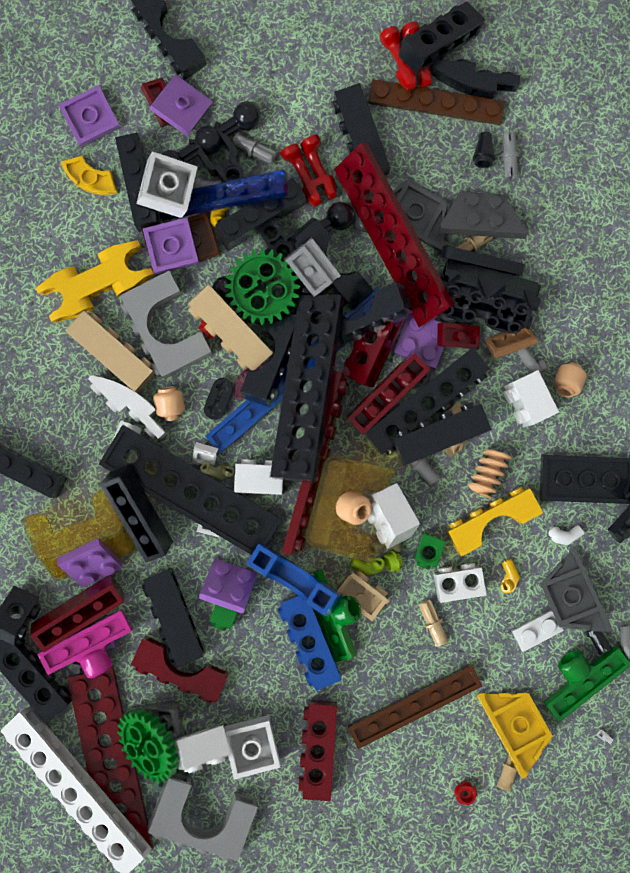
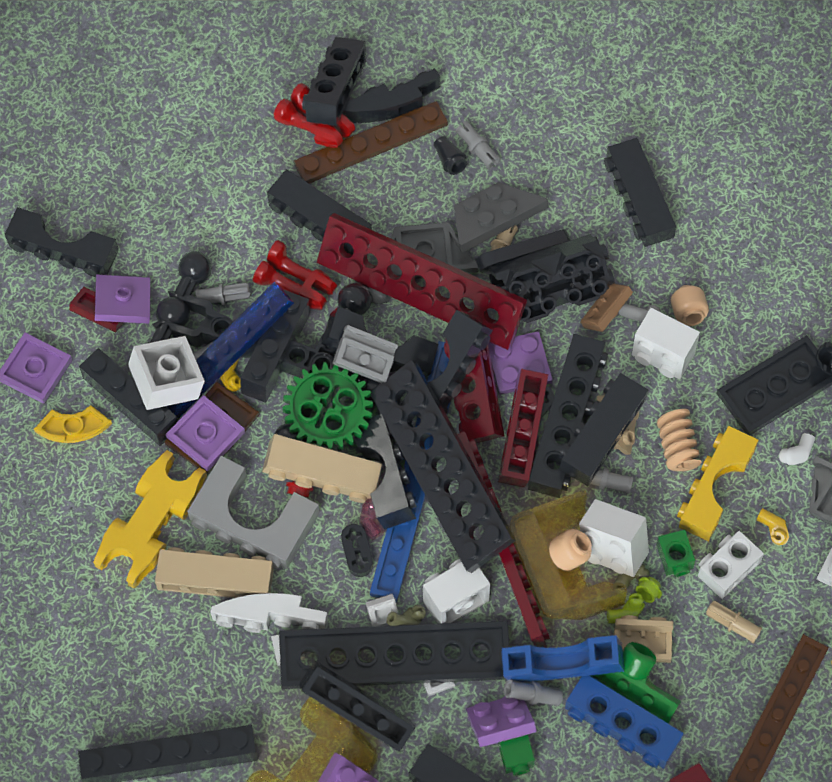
camera: 25 degrees left, 20 degrees down
(169, 403) = (310, 584): light nougat head -> none
(263, 583) = (533, 693): none -> light grey pin
(458, 336) = (551, 333): dark red plate -> none
(598, 271) = (640, 192): none -> black brick

